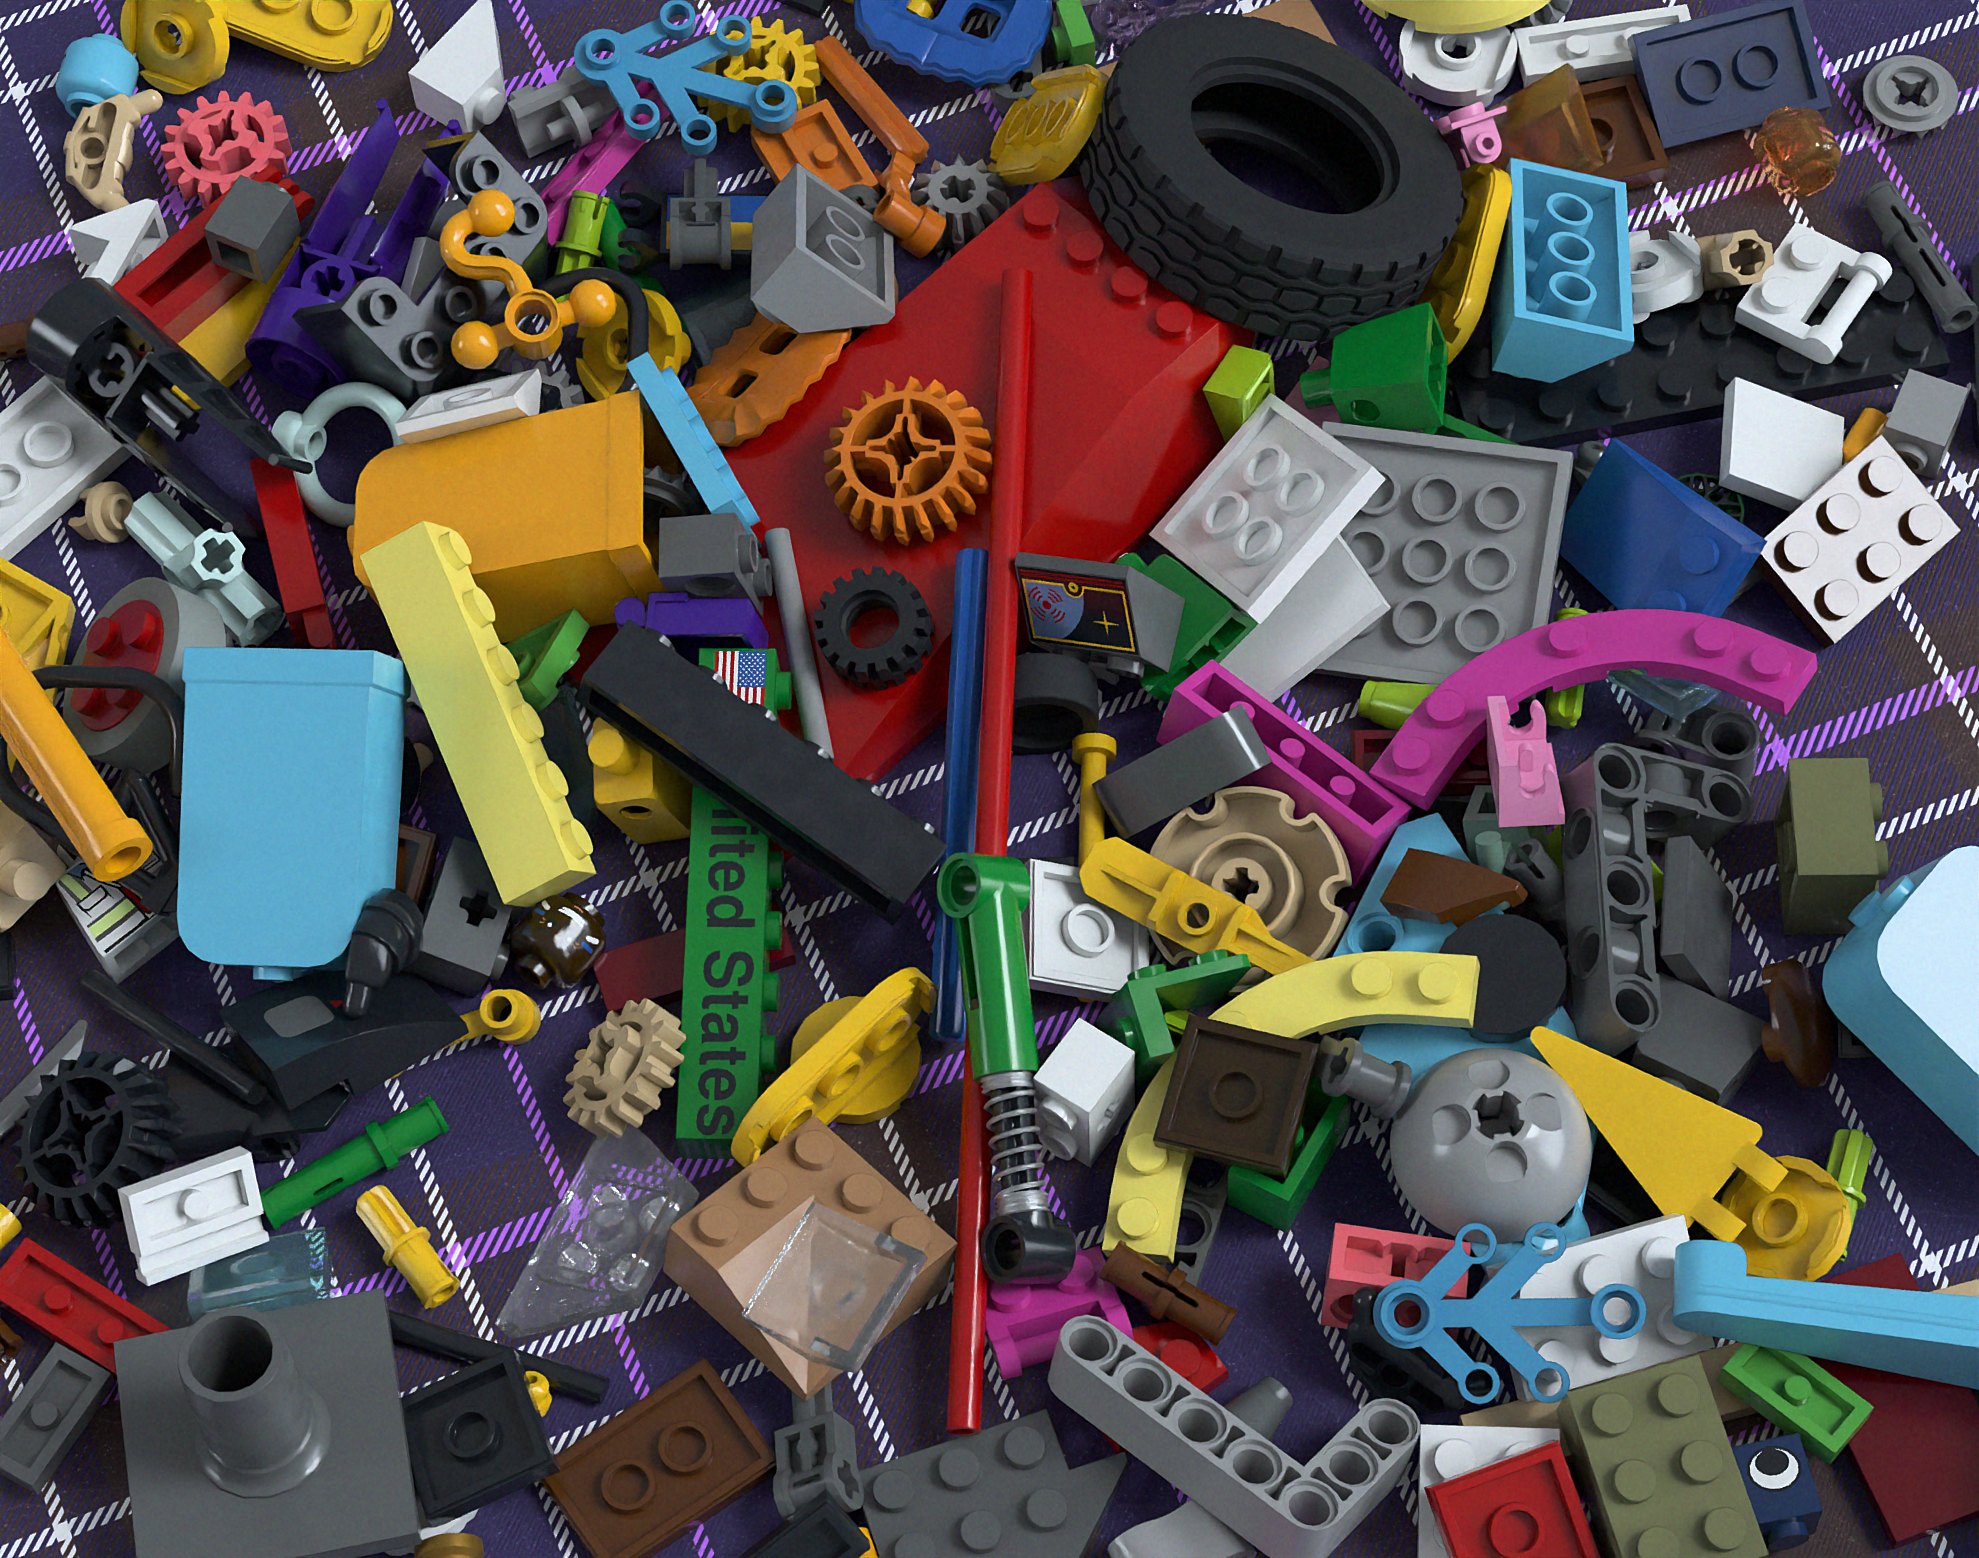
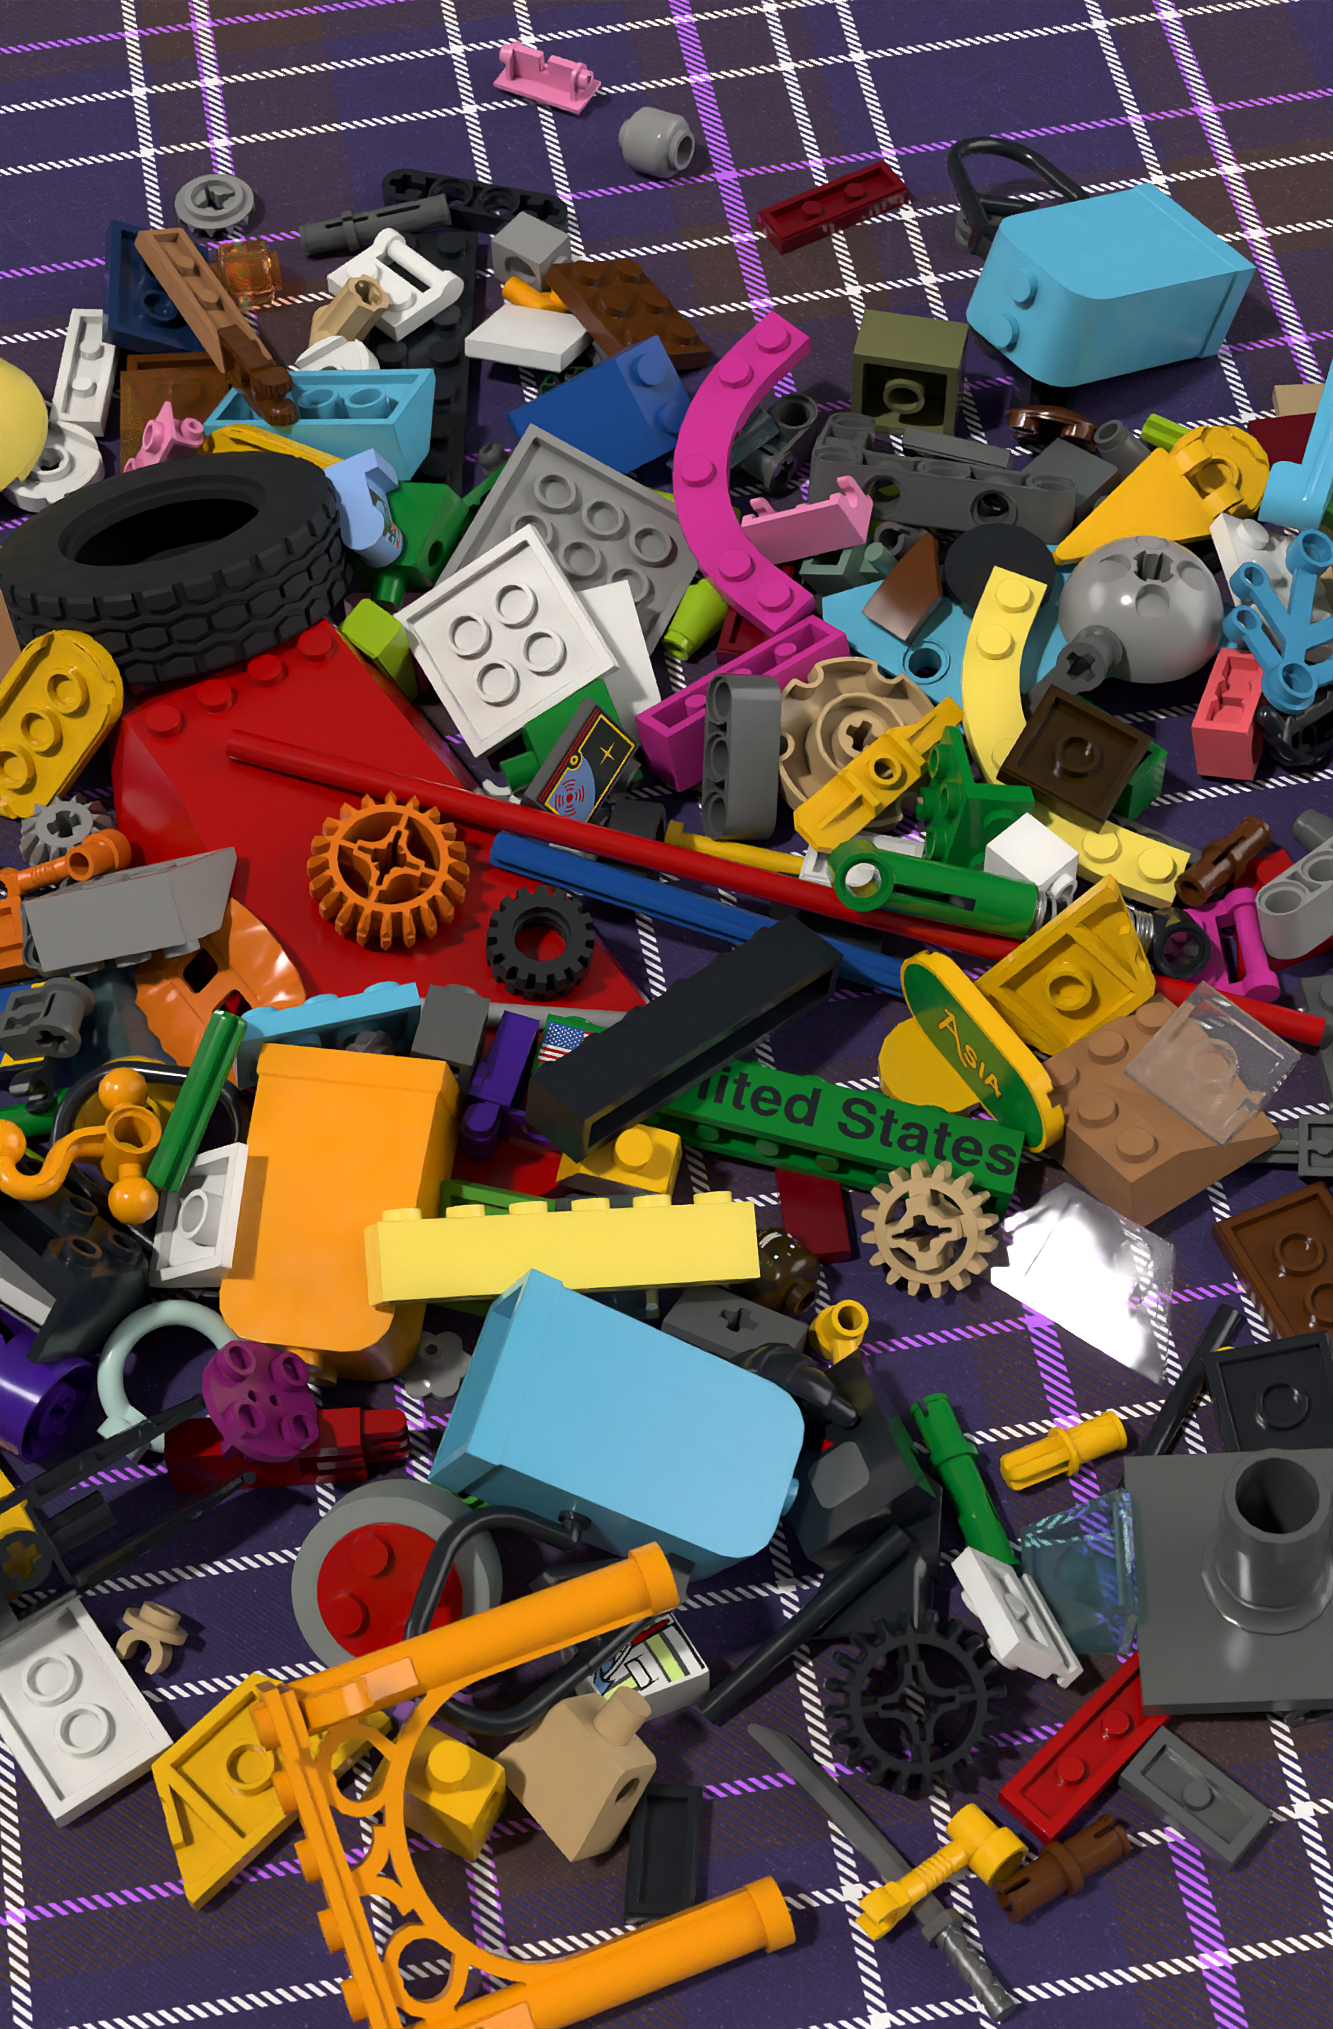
camera: 80 degrees left, 5 degrees down
(204, 565) = (251, 1540): light aqua piece -> none
(315, 494) = (260, 1402): none -> magenta plate
(567, 354) = (196, 1101): none -> green axle
(940, 1138) = (1072, 973): none -> yellow wing
(1373, 318) = (363, 508): none -> light blue leg
(1575, 179) = (256, 377): none -> reddish brown hinge
(1718, 120) = (193, 288): none -> medium nougat tile
(1776, 1107) = (1120, 447): none -> dark grey cone

